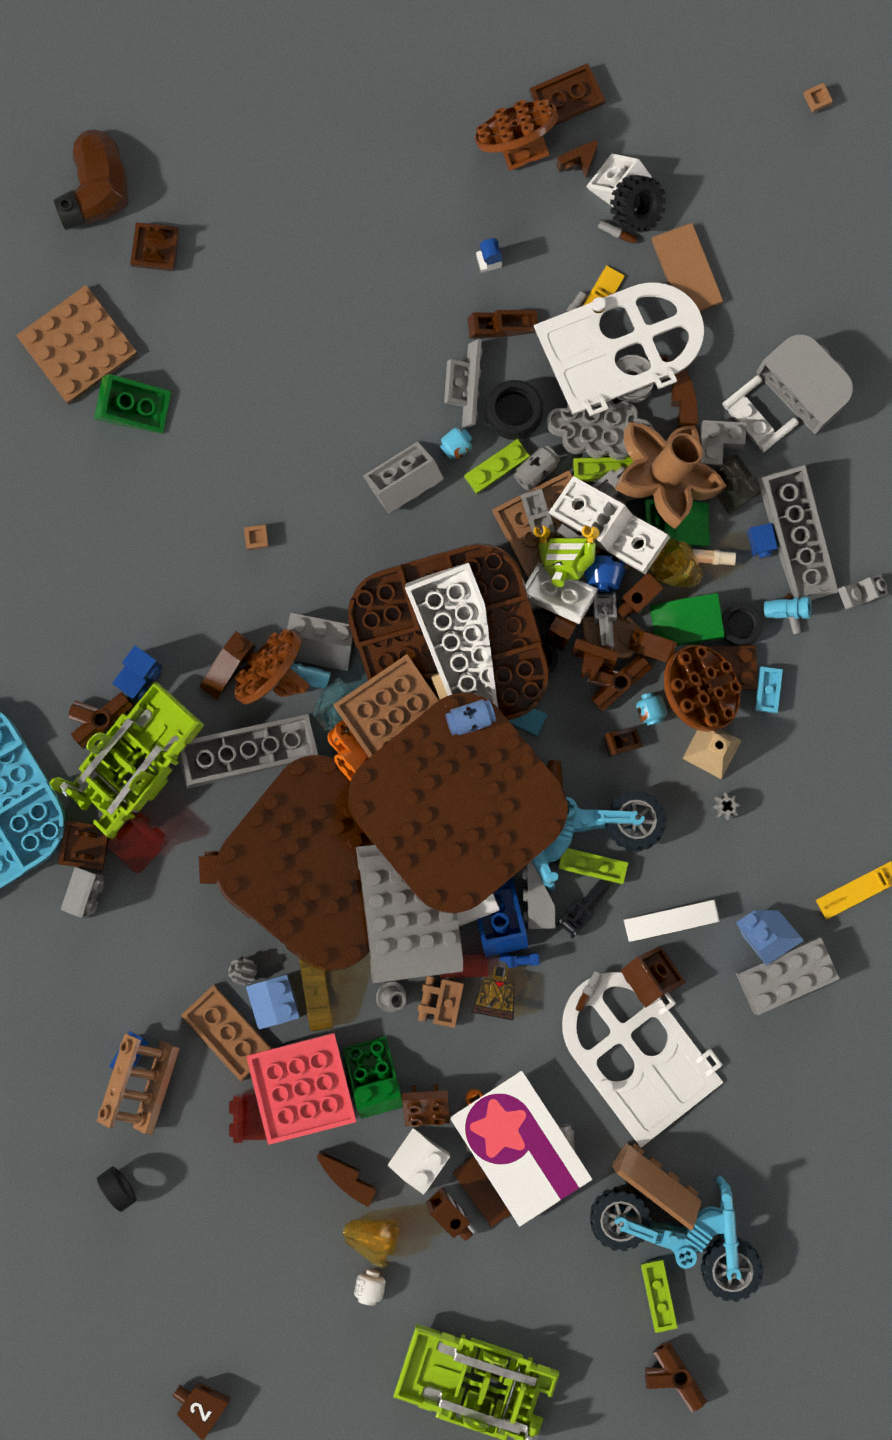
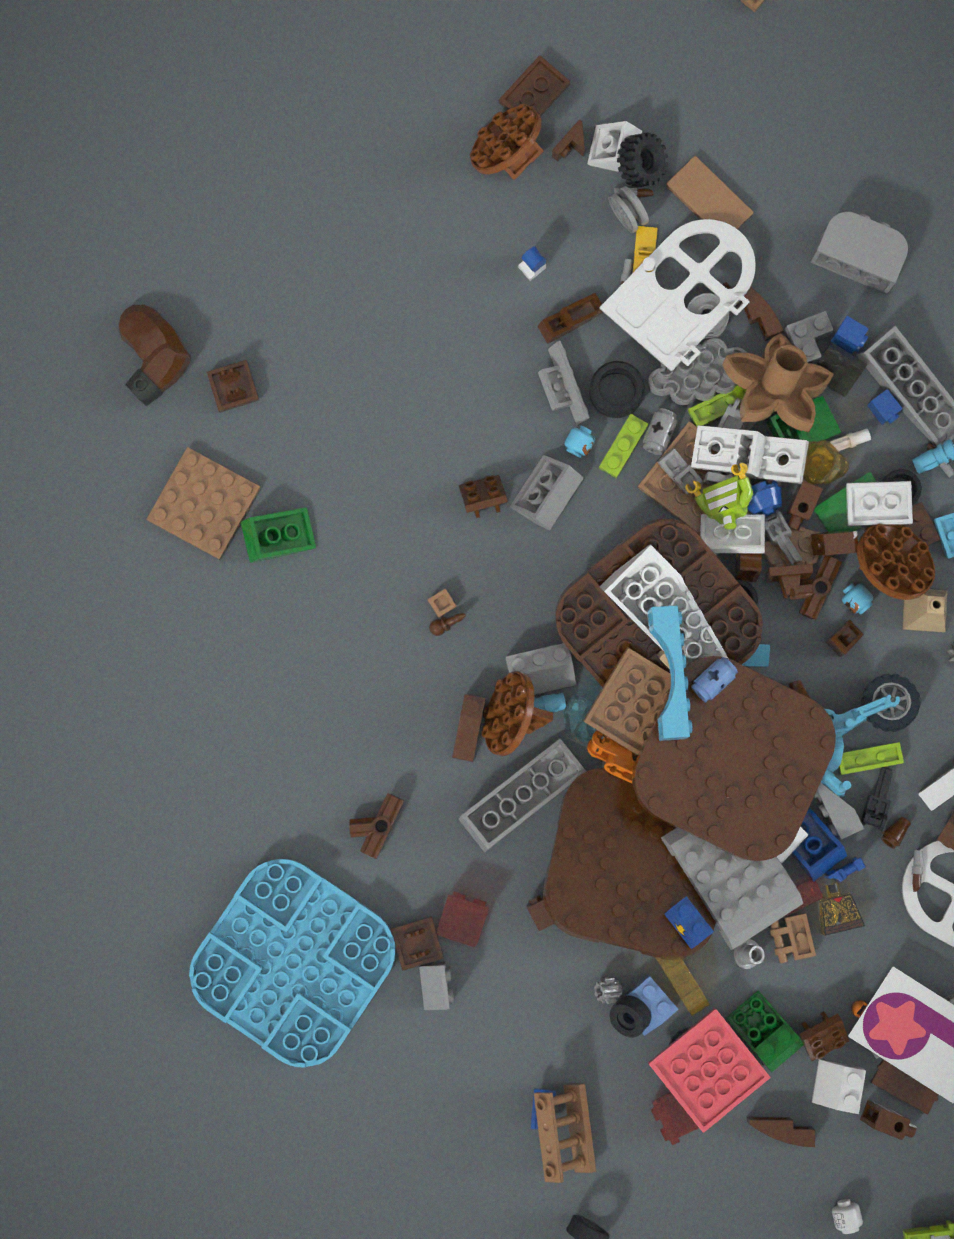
camera: 20 degrees left, 0 degrees up
(137, 673) = (394, 771): blue brick -> none
(156, 726) = (432, 809): lime piece -> none
(225, 1030) = (606, 1047): medium nougat tile -> none
(242, 1000) = (636, 1009): none -> black tyre
(243, 558) = (438, 627): none -> reddish brown bar
(341, 451) = (483, 494): none -> reddish brown plate
(341, 937) = (689, 922): none -> blue brick
(373, 1238) = (830, 1172): clear yellow cone -> none
(446, 649) = (665, 628): none -> medium azure arch
(582, 948) = (895, 833): none -> reddish brown cone
(603, 244) = (628, 209): none -> light grey wheel
(712, 627) = (879, 503): none -> white tile
(756, 426) = (818, 302): white plate -> none
(758, 456) = (850, 335): none -> blue brick

